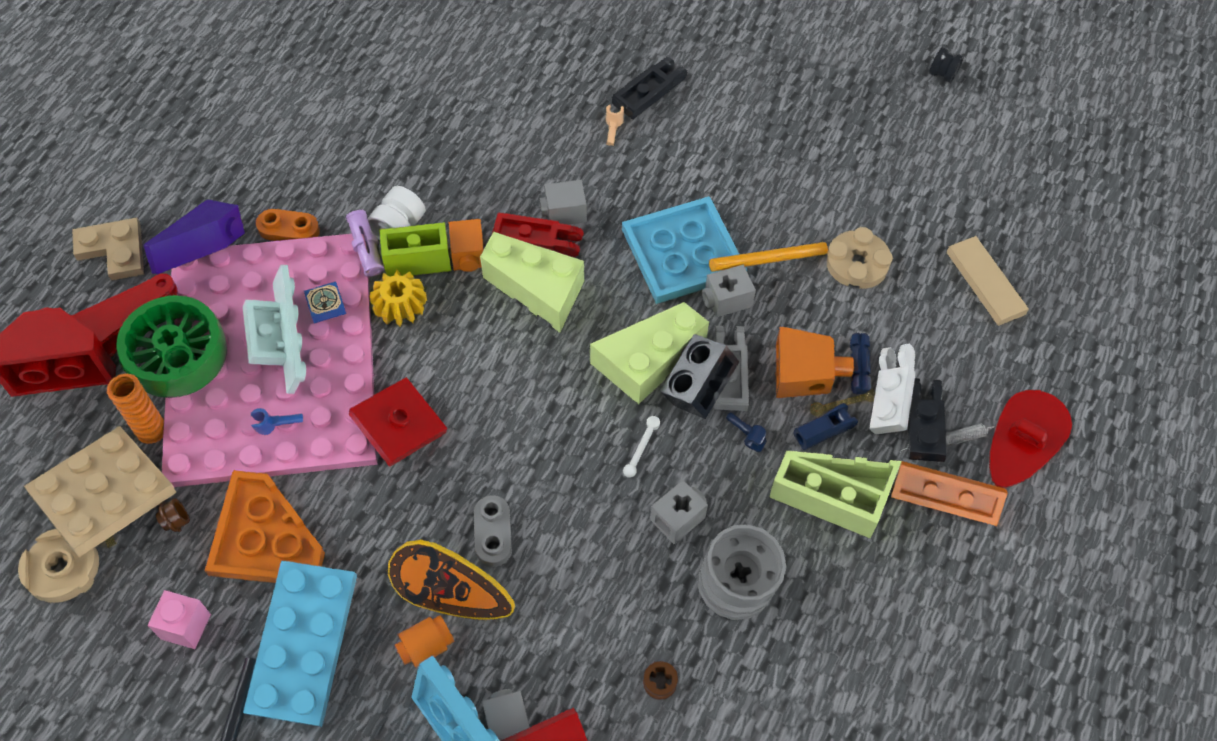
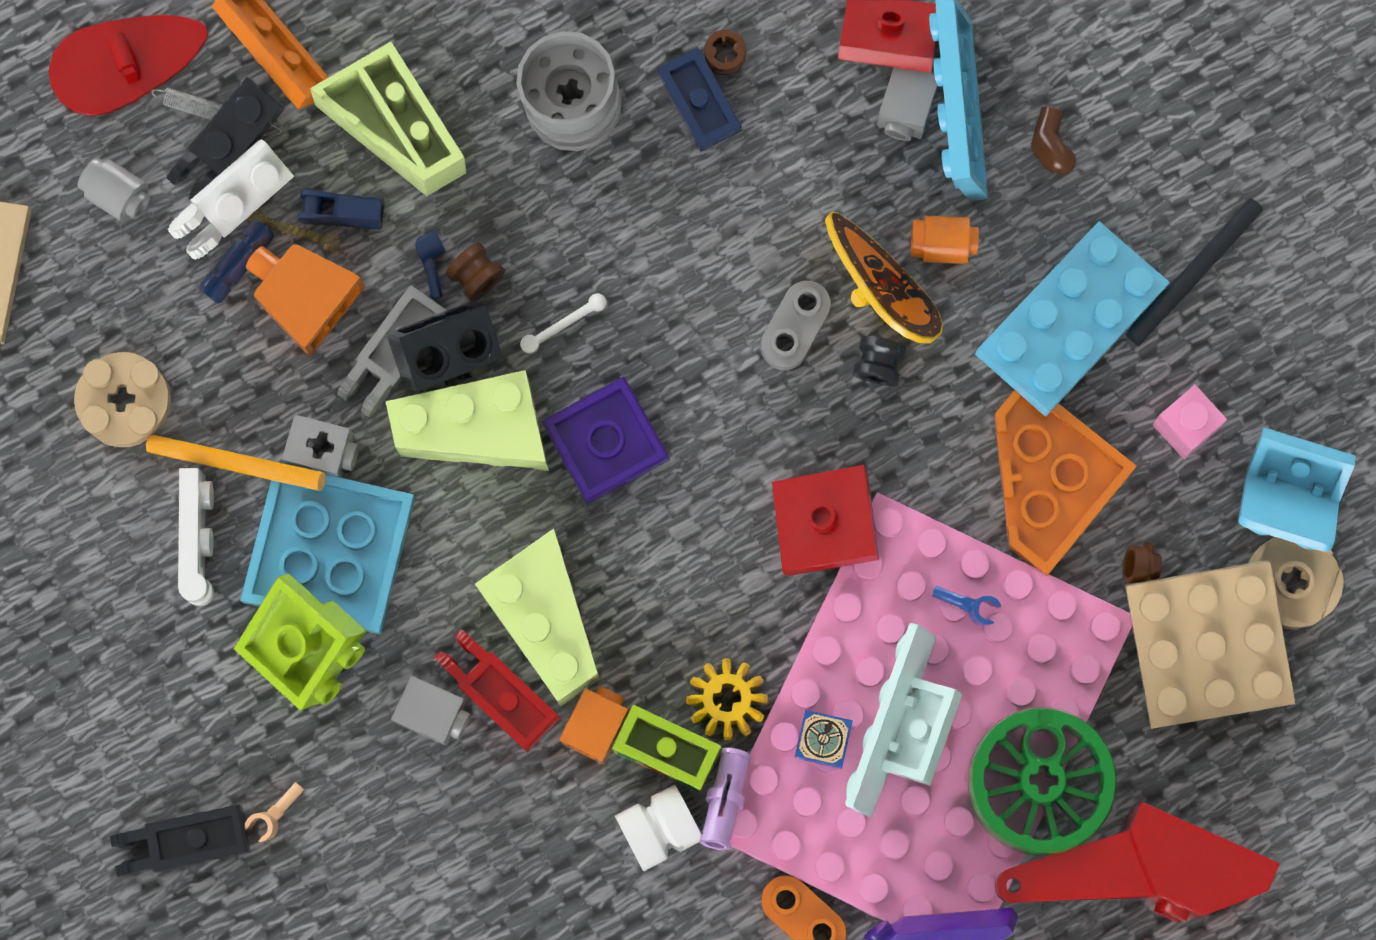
camera: 140 degrees left, 20 degrees up
(78, 610) = (1294, 490): none -> medium azure bracket
(136, 408) = (1137, 693): orange piece -> none
(421, 528) = (879, 360): none -> black wheel
(566, 392) = (605, 440): none -> dark purple plate
(651, 186) = (301, 643): none -> lime plate
(654, 633) = (699, 99): none -> dark blue plate
(678, 524) = (596, 212): light grey brick -> none
(716, 436) = (475, 271): none -> reddish brown wheel
(760, 211) = (194, 539): none -> white plate
(963, 355) = (114, 189): none -> light grey brick

